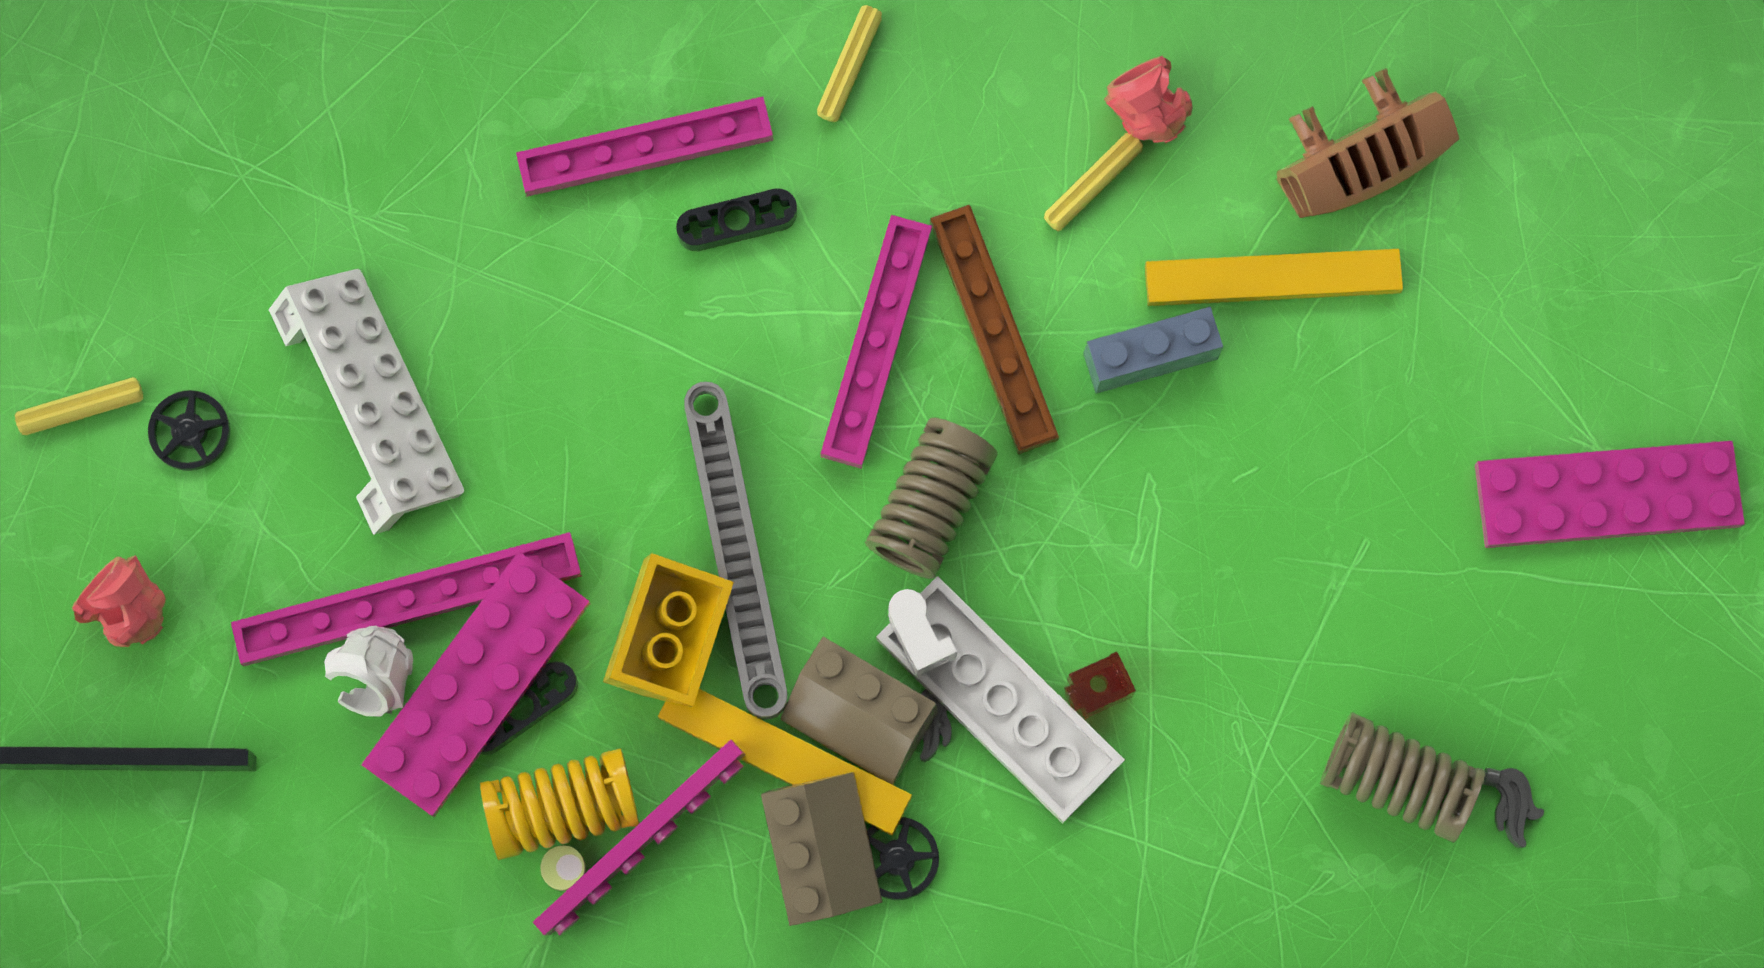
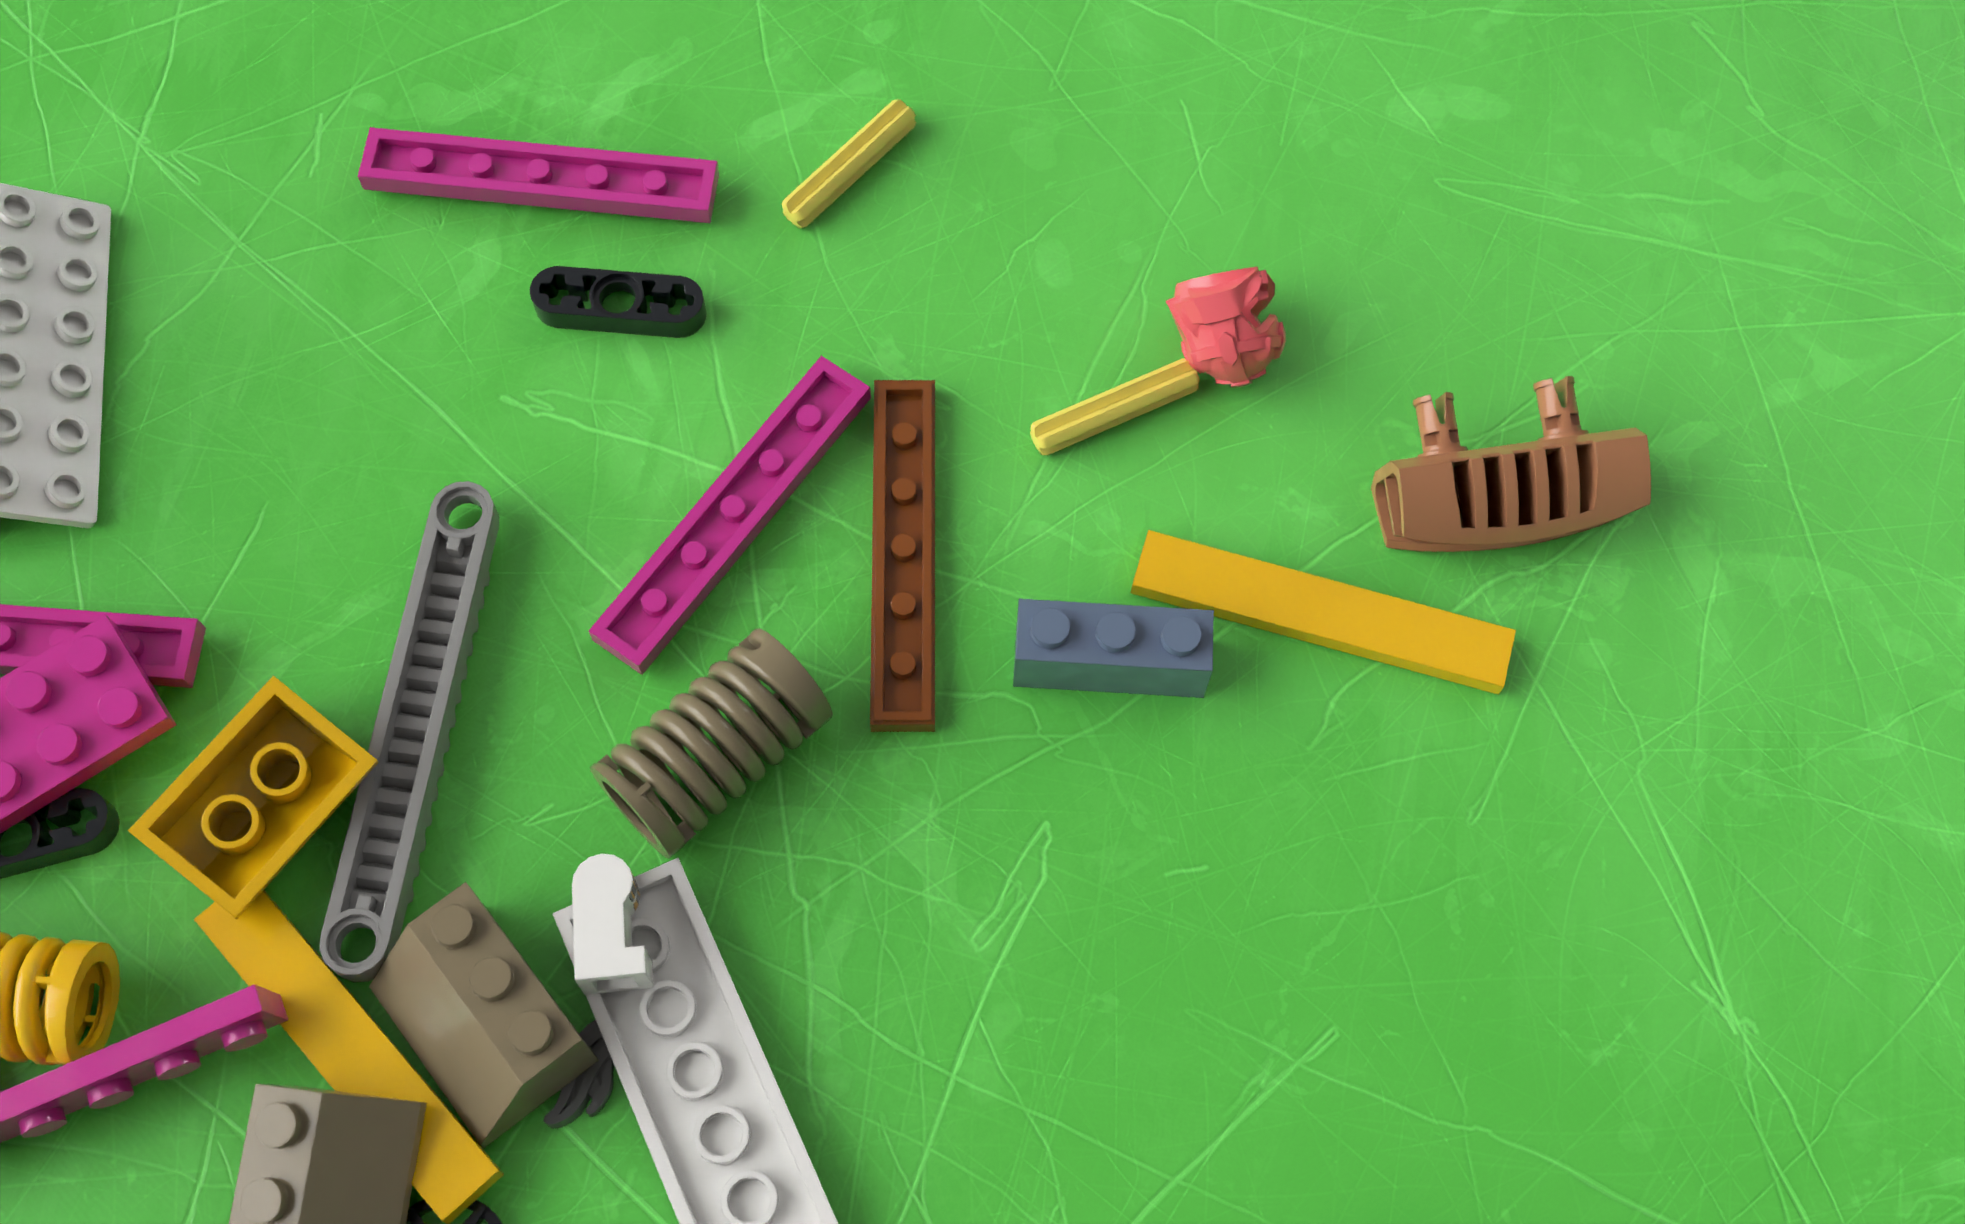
camera: 20 degrees right, 10 degrees down
(1118, 686) = (868, 1124): clear red brick -> none
(1609, 494) = (1732, 1090): dark pink plate -> none

